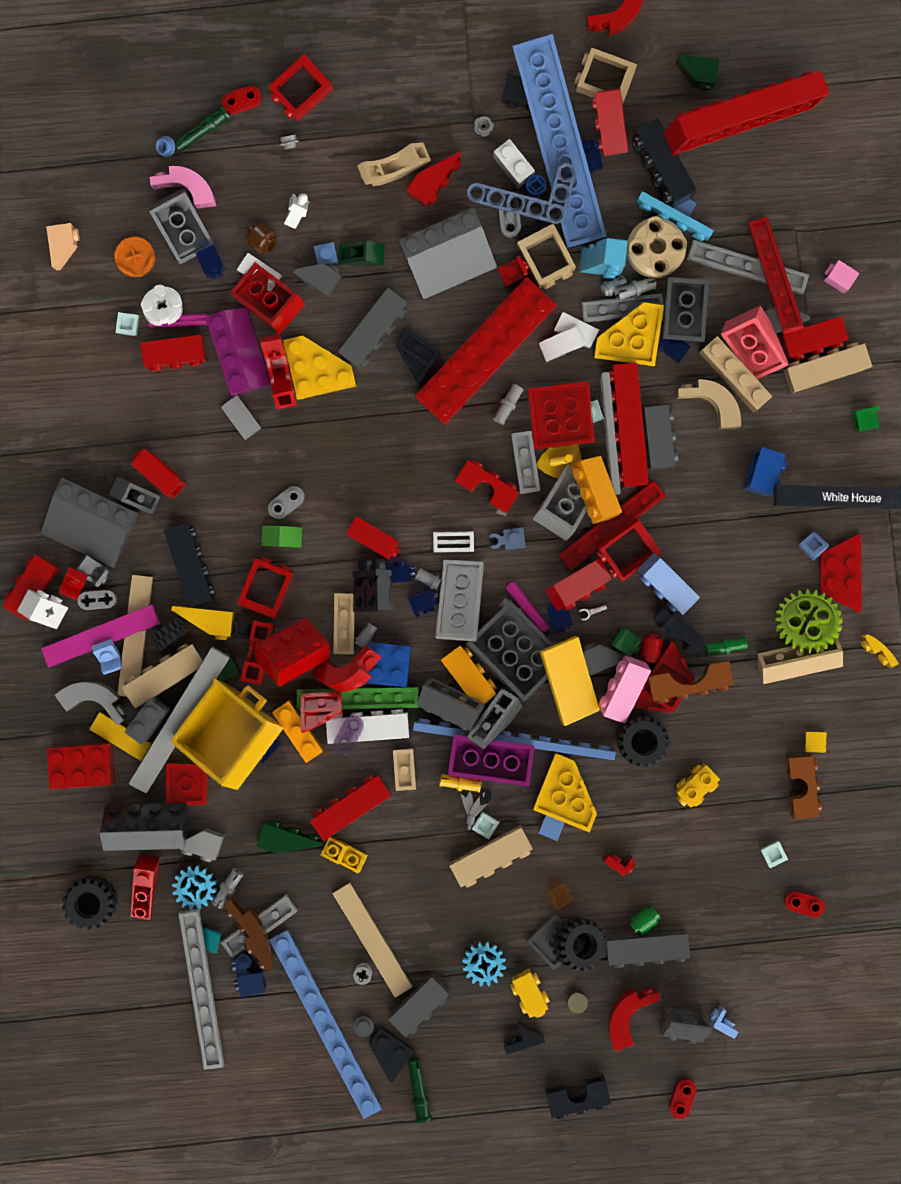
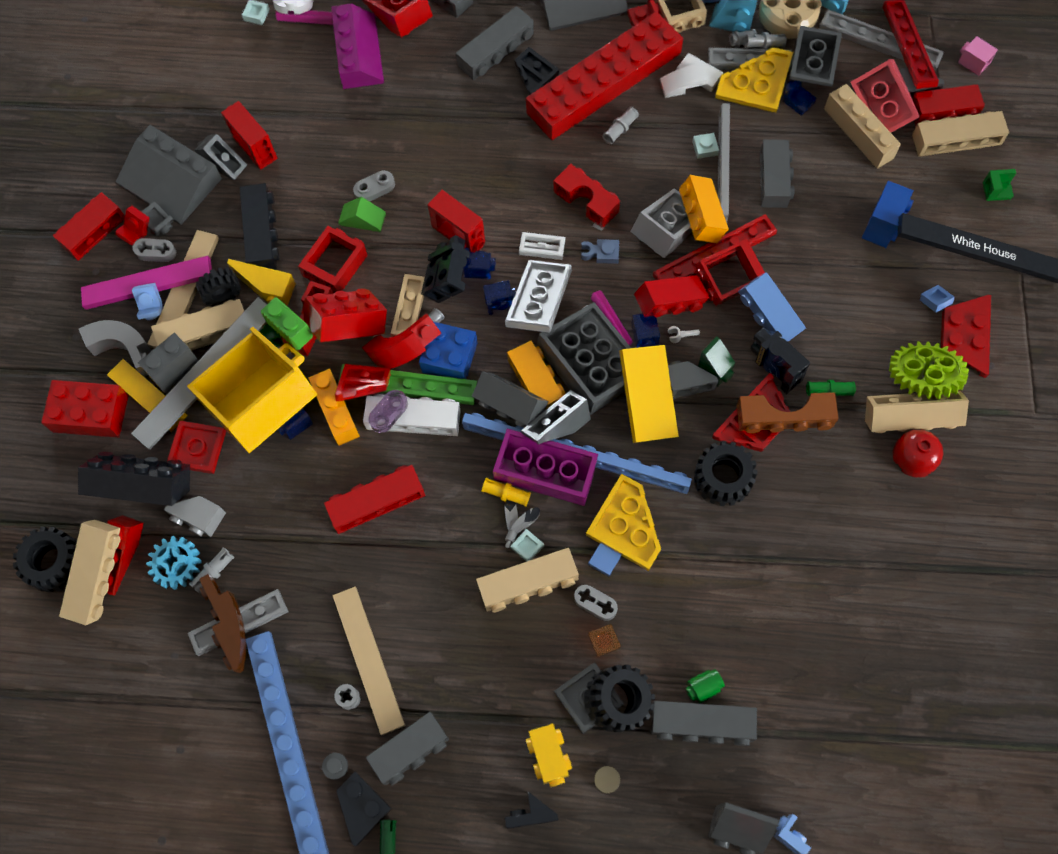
camera: 15 degrees right, 20 degrees down
(42, 608) = (82, 235): white brick -> none
(131, 911) = (90, 572): none -> tan brick
(173, 353) = (293, 39): red brick -> none
(201, 989) = (149, 687): light grey tile -> none
(212, 939) = (177, 629): teal slope -> none
(241, 417) = (346, 105): light grey tile -> none
(241, 630) = (294, 299): black wheel -> none
(244, 671) = (286, 323): none -> bright green brick
(248, 981) = (206, 683): dark blue brick -> none
(279, 371) = (393, 59): red arch -> none
(281, 839) = (289, 524): dark green slope -> none
(316, 369) = (432, 74): yellow plate -> none
(344, 854) = (356, 554): yellow slope -> none
(404, 769) = (444, 467): tan plate -> none
(428, 579) = (507, 274): light grey pin -> none
(492, 961) = (510, 708): medium azure gear -> none
(525, 462) = (630, 180): light grey plate -> none
(546, 869) = (598, 597): none -> light grey beam
(555, 459) = (665, 181): yellow shield -> none
(561, 415) = (675, 139): red plate -> none
(615, 863) = (676, 611): red bracket -> none
(623, 1010) = (657, 808): red arch -> none
(624, 689) = (710, 410): bright pink brick -> none
(629, 425) = (744, 159): red brick -> none
(651, 648) = (745, 377): red brick -> none
(692, 789) = (777, 539): yellow brick -> none
(723, 401) = (840, 144): tan arch -> none
(773, 854) = (871, 630): light aqua plate -> none
(804, 694) = (918, 453): none -> red cylinder
(805, 903) = (906, 700): red plate -> none
(806, 804) = (914, 535): dark orange arch -> none
(815, 742) = (928, 508): yellow tile -> none
(874, 646) = (1003, 409): yellow slope -> none

